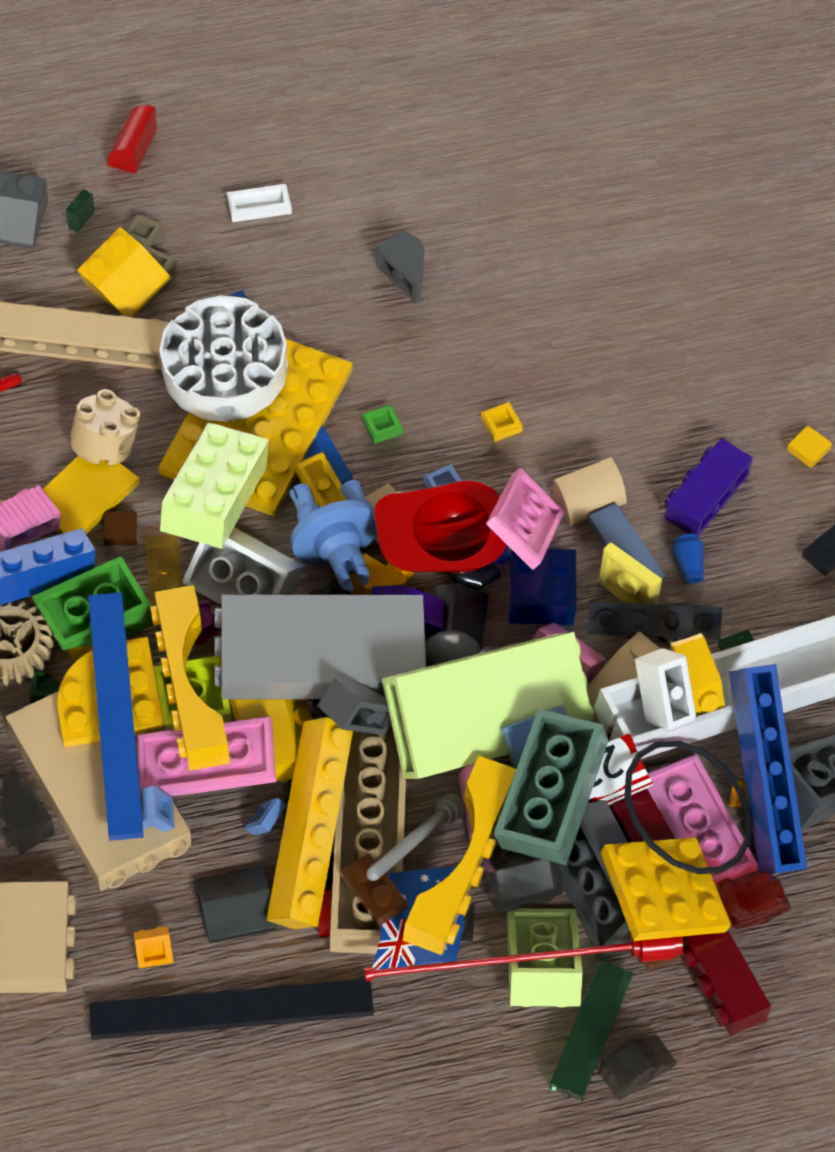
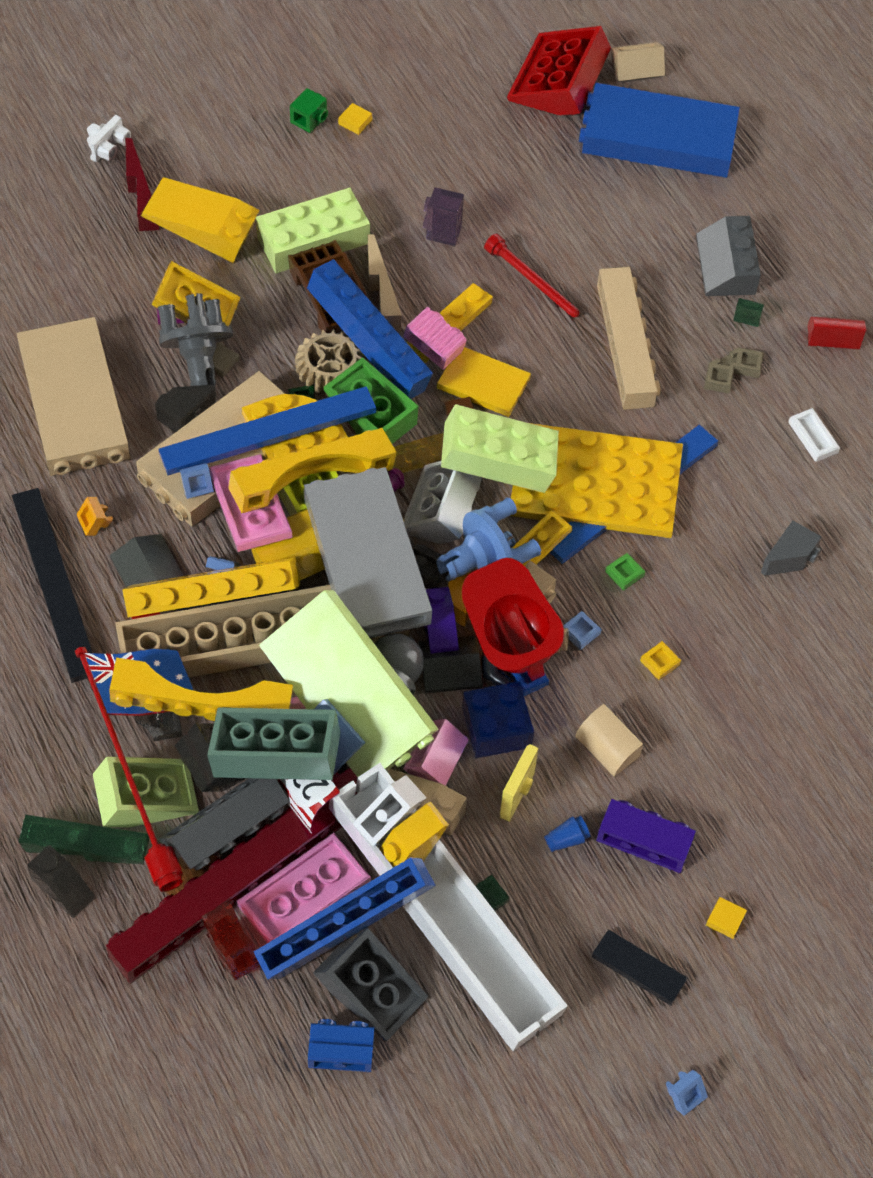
camera: 75 degrees right, 0 degrees up
(104, 428) = (539, 372): tan brick -> none
(123, 273) = (695, 352): yellow slope -> none
(224, 358) = (629, 431): white brick -> none
(355, 707) = (307, 578): dark grey slope -> none
(378, 897) = (156, 639): reddish brown plate -> none
(447, 810) = (203, 655): light grey piece -> none
(525, 518) = (545, 680): bright pink tile -> none
(614, 527) = (563, 783): sand blue tile -> none
(654, 620) = (483, 809): black bracket -> none
(661, 897) = (209, 859): yellow plate -> none
(748, 817) = (261, 805): black piece -> none

